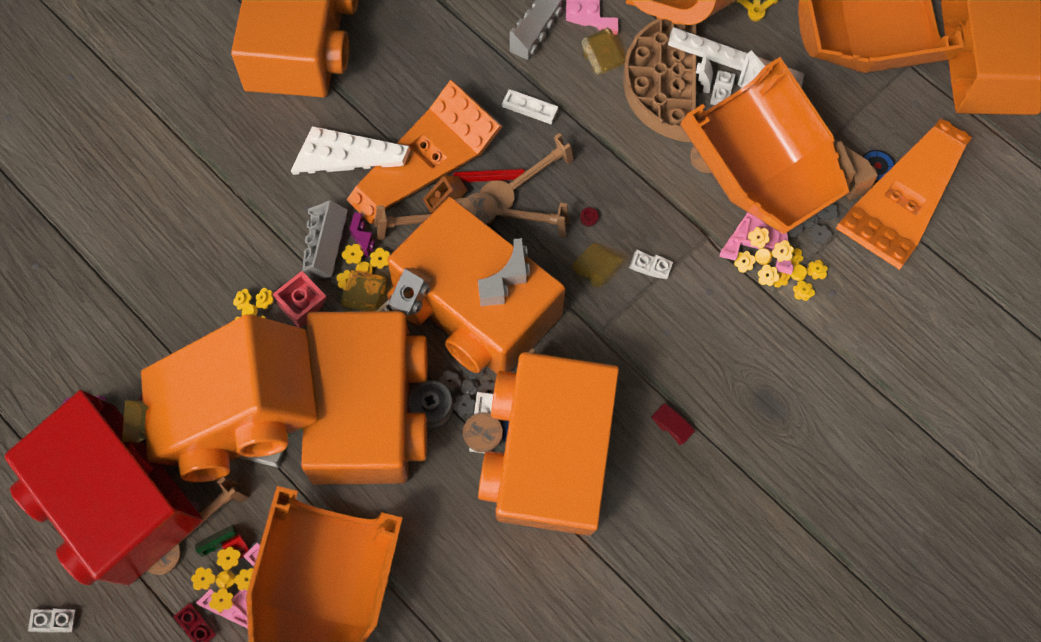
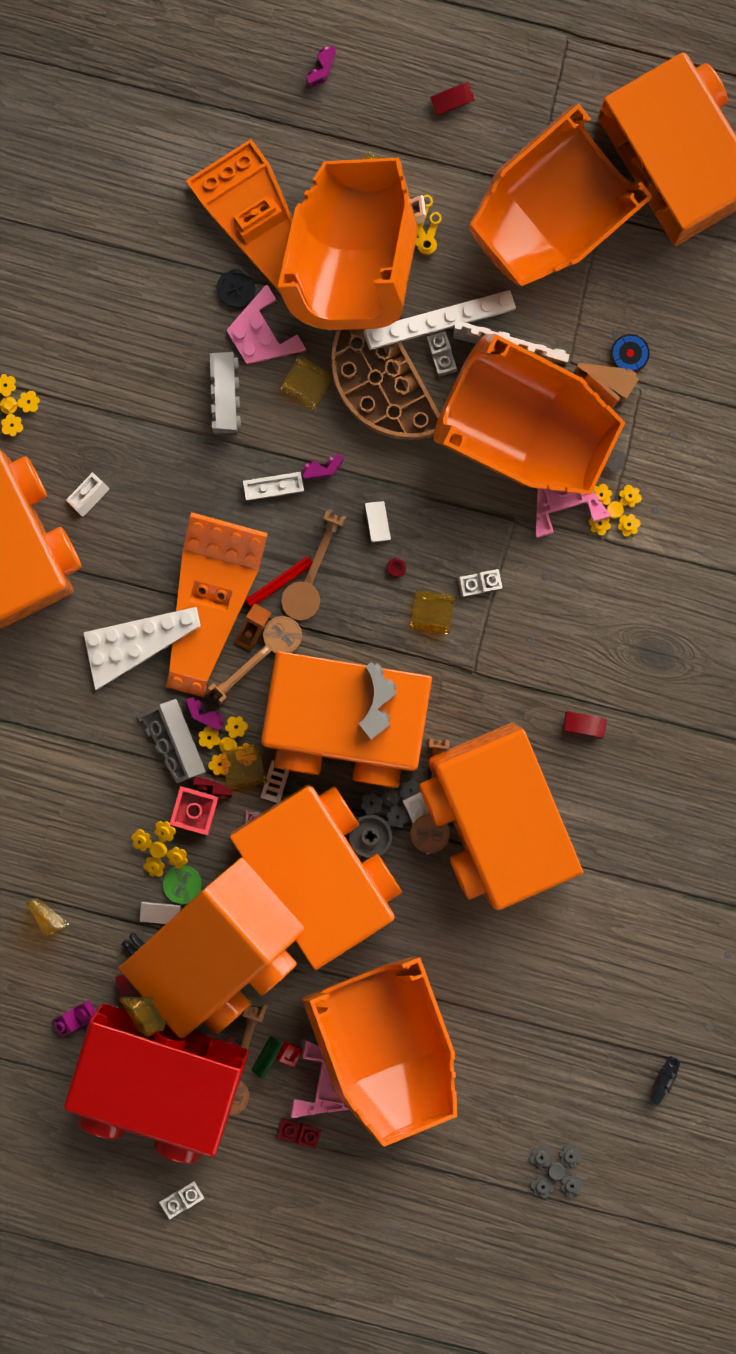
camera: 30 degrees left, 20 degrees up
(120, 310) = (47, 919): none -> clear yellow slope
(224, 579) = (301, 1085): yellow plant -> none
(333, 299) = (218, 789): none -> dark red slope
(385, 39) = (87, 494): none -> white slope
(402, 298) = (301, 773): brick -> none
(486, 209) = (296, 623): medium nougat piece -> none
(569, 113) = (316, 471): none -> magenta slope
(595, 175) = (377, 521): none -> white slope
(705, 74) = (419, 354): white slope -> none
(764, 256) = (577, 516): yellow plant -> none
(901, 203) = (672, 413): orange wing -> none

